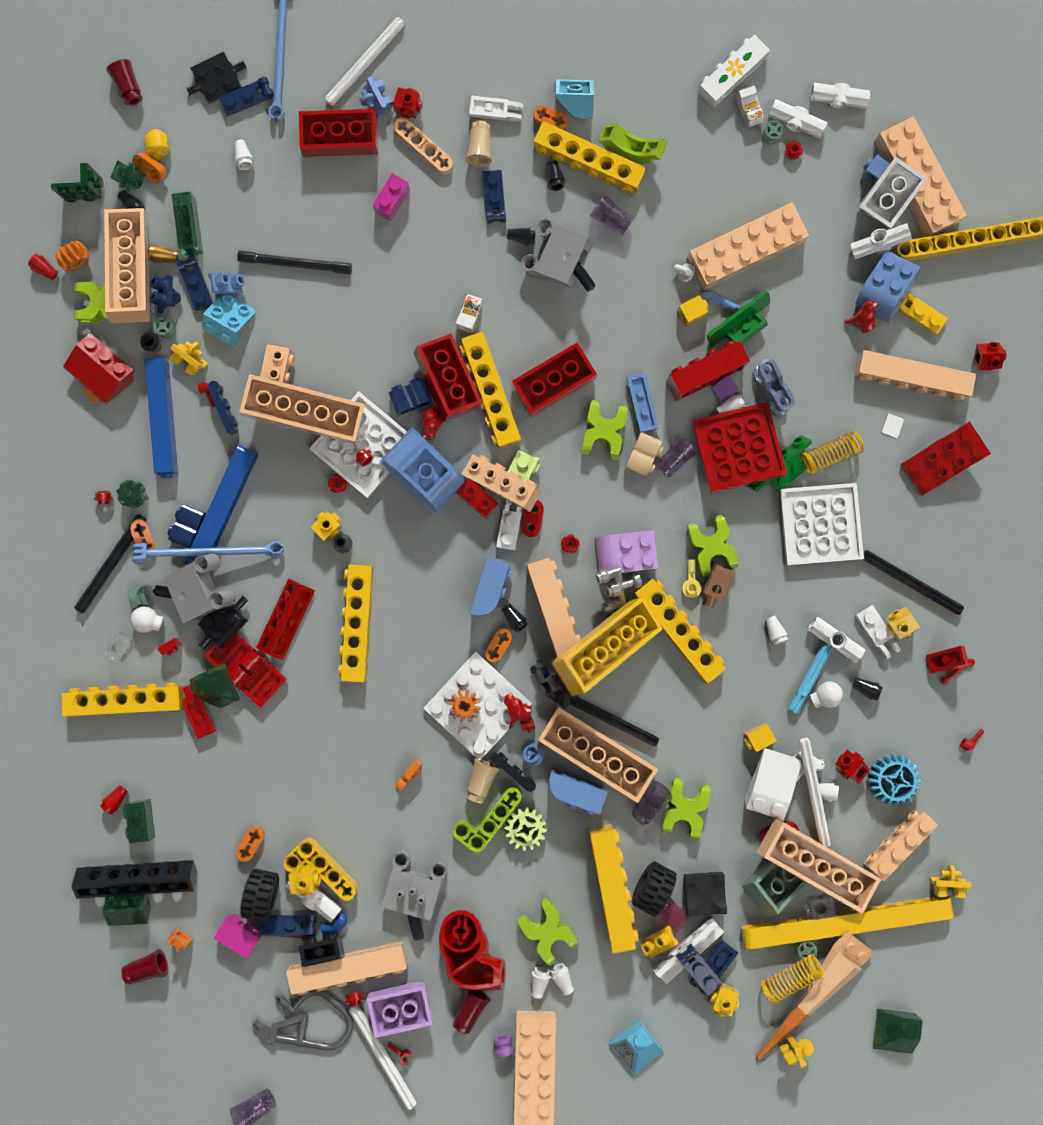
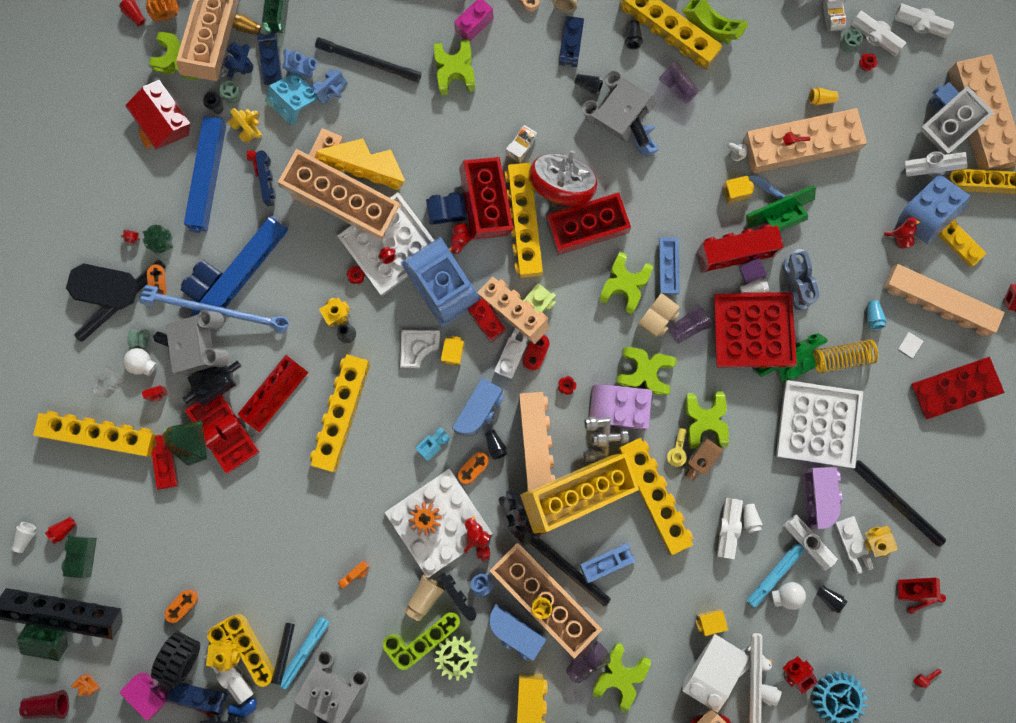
camera: 20 degrees right, 5 degrees down
(79, 814) = (23, 535): none -> white cone
(89, 554) = (102, 286): none -> black shield
(264, 300) = (330, 87): none -> medium blue hips
(311, 369) = (357, 160): none -> yellow slope
(360, 865) = (283, 653): none -> black piece
(379, 859) = (304, 651): none -> medium azure axle
(383, 250) = (454, 67): none -> lime piece
(414, 539) = (416, 345): none -> white tile
(451, 536) = (453, 351): none -> yellow brick
(451, 633) = (430, 445): none -> medium azure plate
(518, 350) = (562, 179): none -> flat silver wheel
(597, 767) = (539, 610): none -> yellow wheel
(599, 288) = (651, 147): none -> medium blue bracket
(643, 511) = (646, 370): none -> lime piece
(647, 705) = (606, 563): none -> medium blue plate
(732, 249) = (789, 139): none -> red hand
(753, 197) = (822, 96): none -> yellow cone
(757, 644) = (729, 528): none -> white piece
(838, 594) = (822, 496): none -> lavender brick
(853, 405) = (875, 316): none -> medium azure cone

